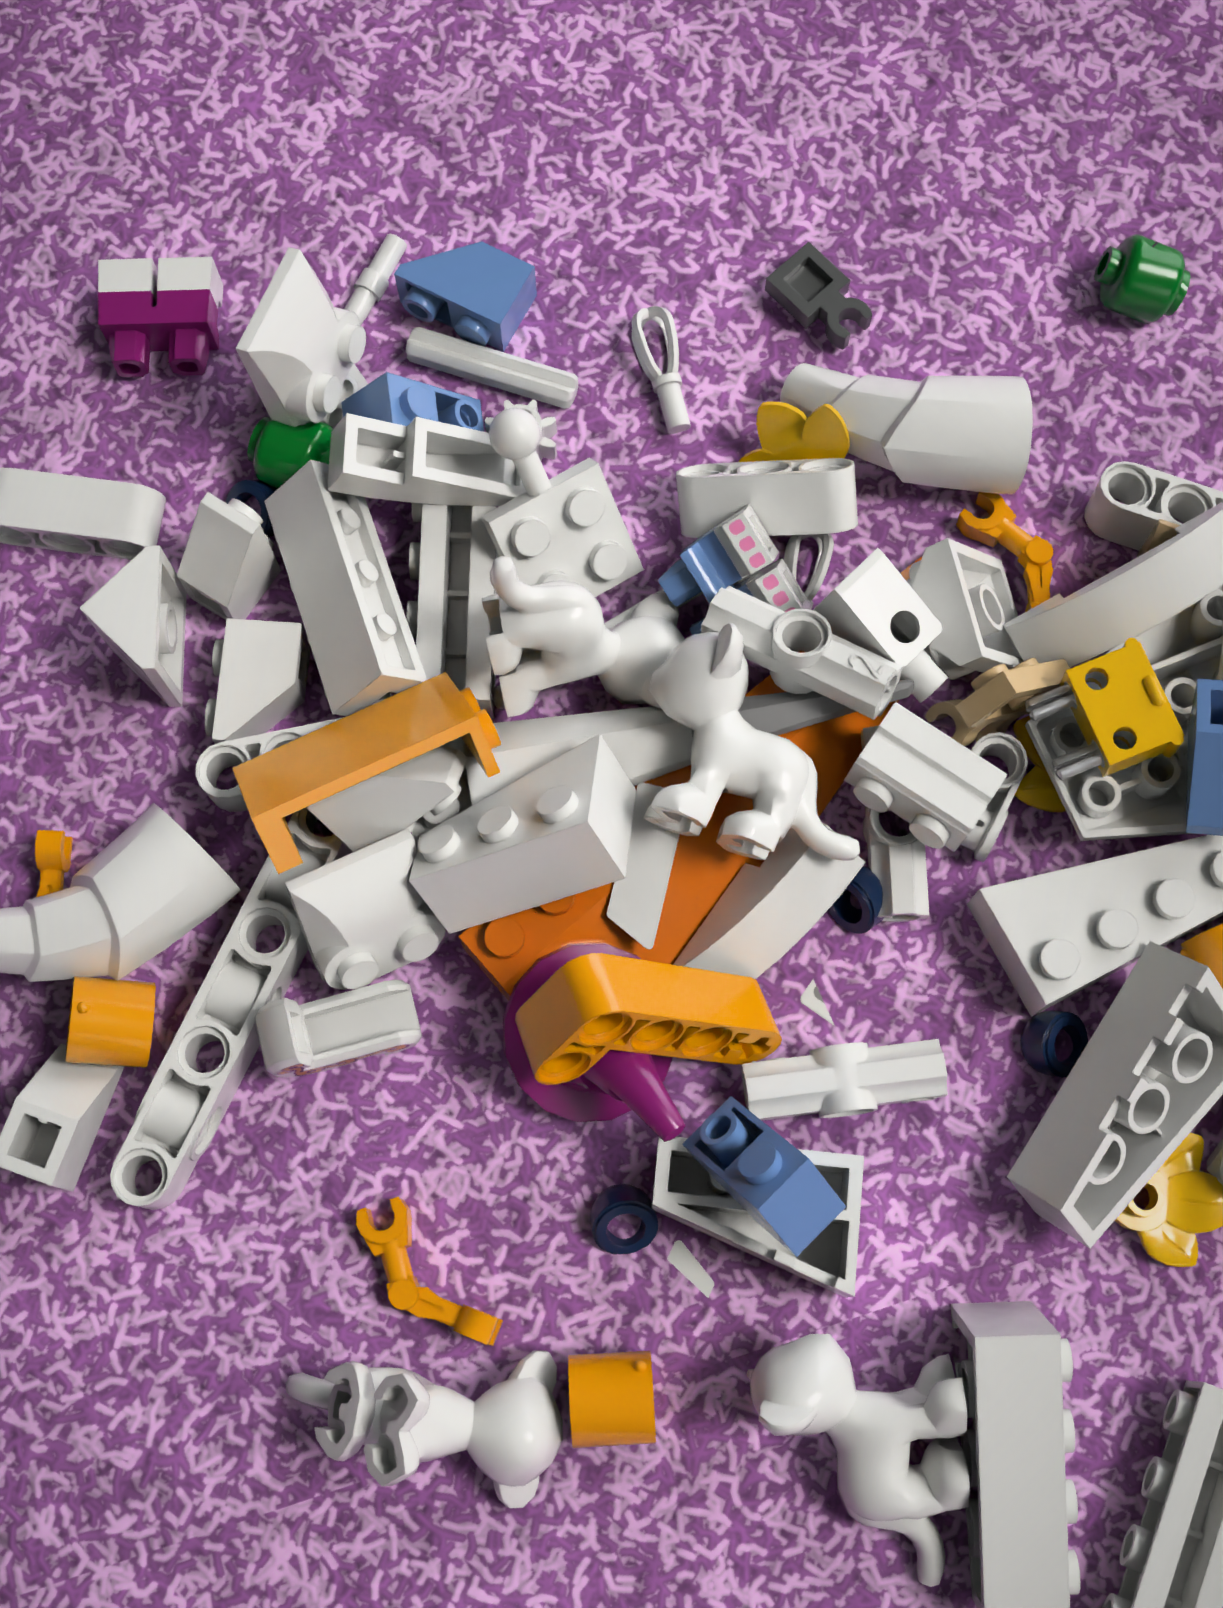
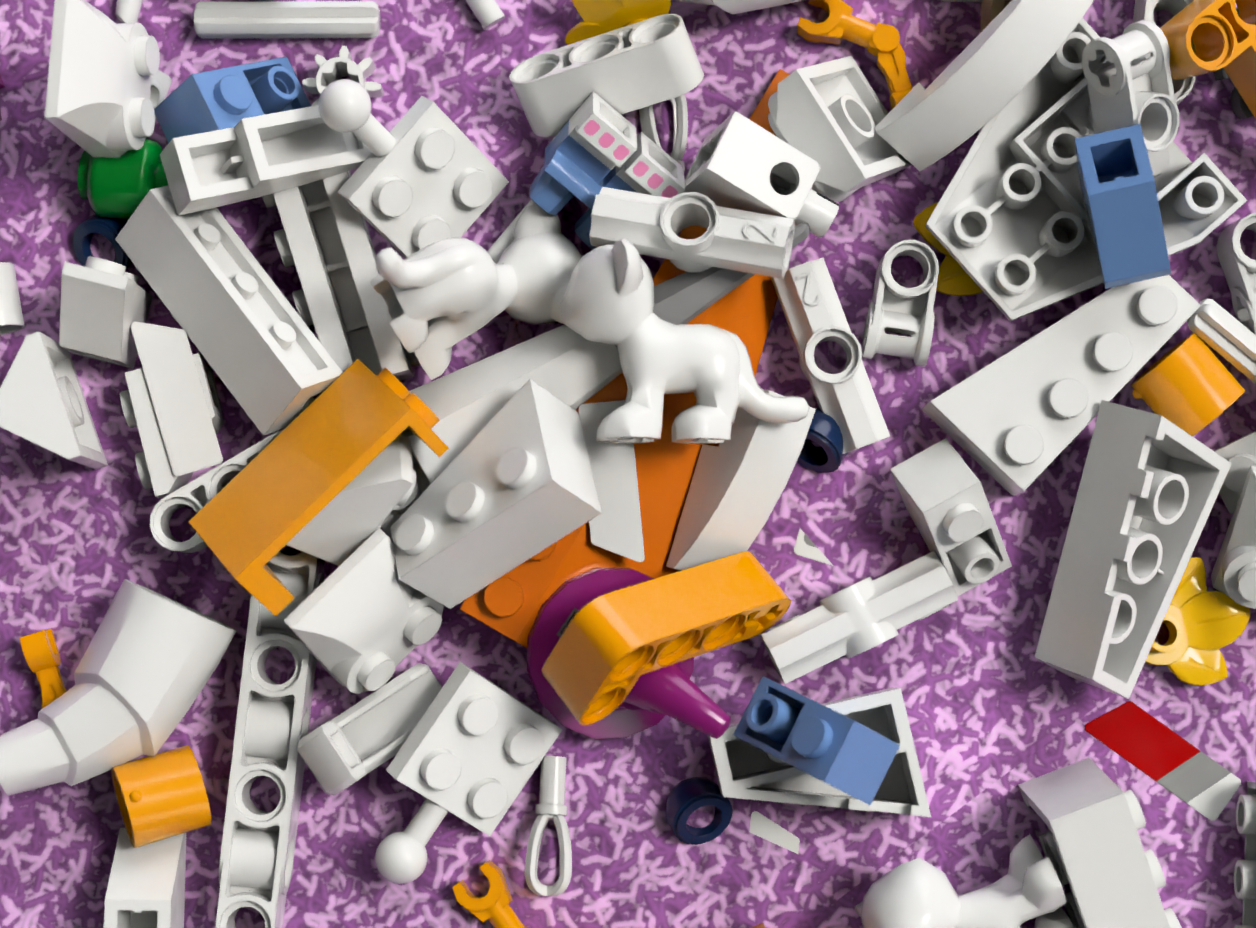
camera: 20 degrees left, 10 degrees up
(266, 656) = (177, 397): none -> white sticker
(417, 1086) = (467, 760): none -> white plate
(479, 1166) = (550, 807): none -> white piece
(924, 779) = (847, 316): white brick -> none
(967, 1011) = (952, 515): none -> white slope
(998, 698) = (892, 207): tan plate -> none
(1039, 1038) = (1026, 517): dark blue piece -> none
(1109, 1329) = (1166, 758): none -> sticker
(1125, 709) = (1016, 186): yellow piece -> none

